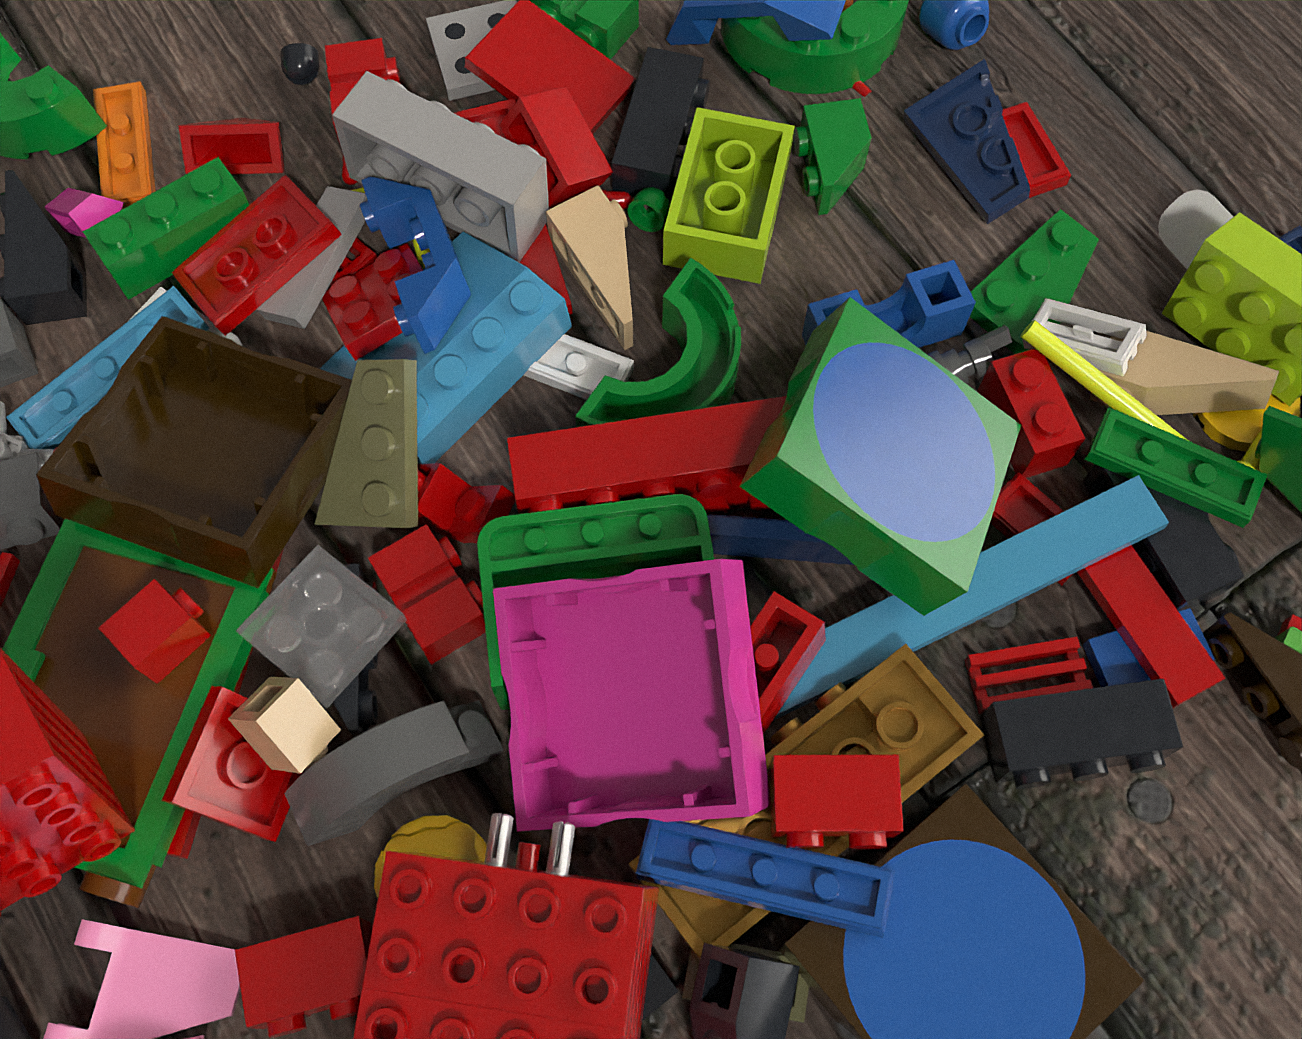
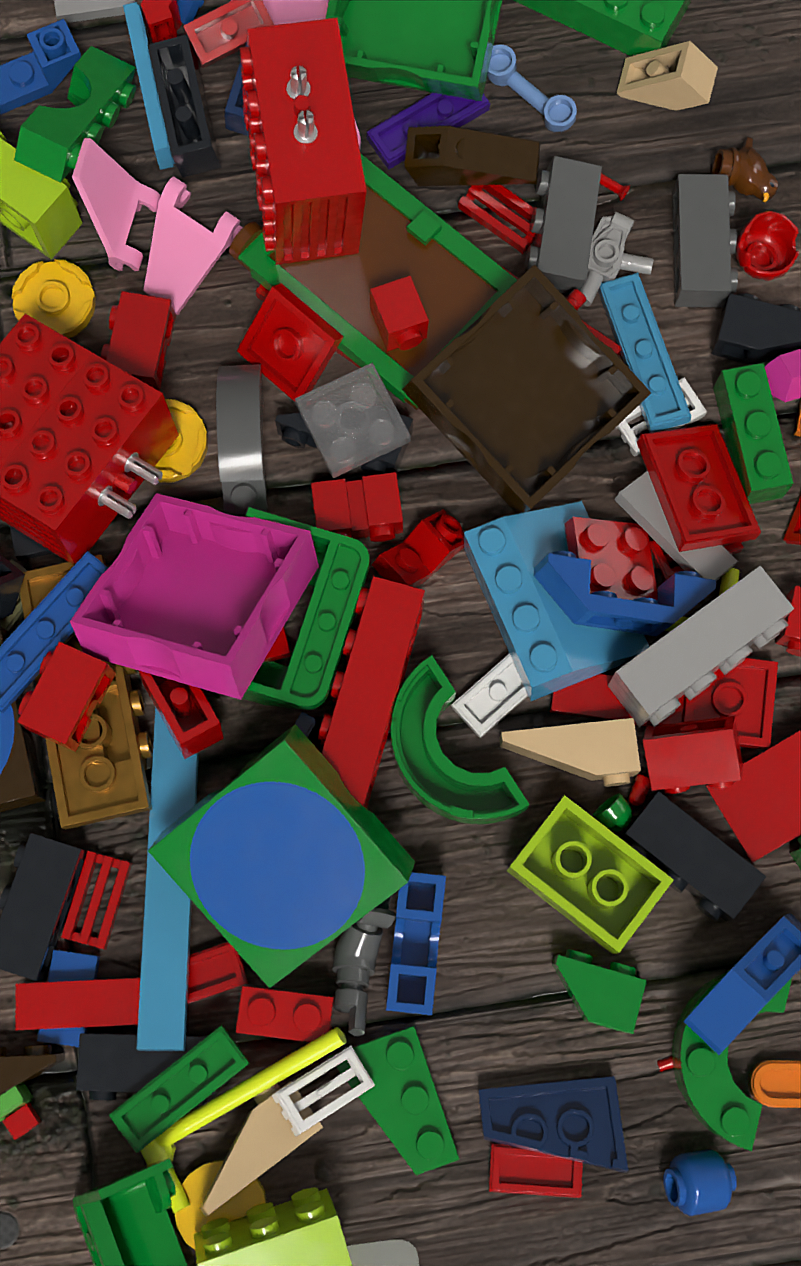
camera: 115 degrees right, 10 degrees up
(285, 725) = (296, 373): tan brick -> none
(375, 452) = (473, 506): olive wing -> none

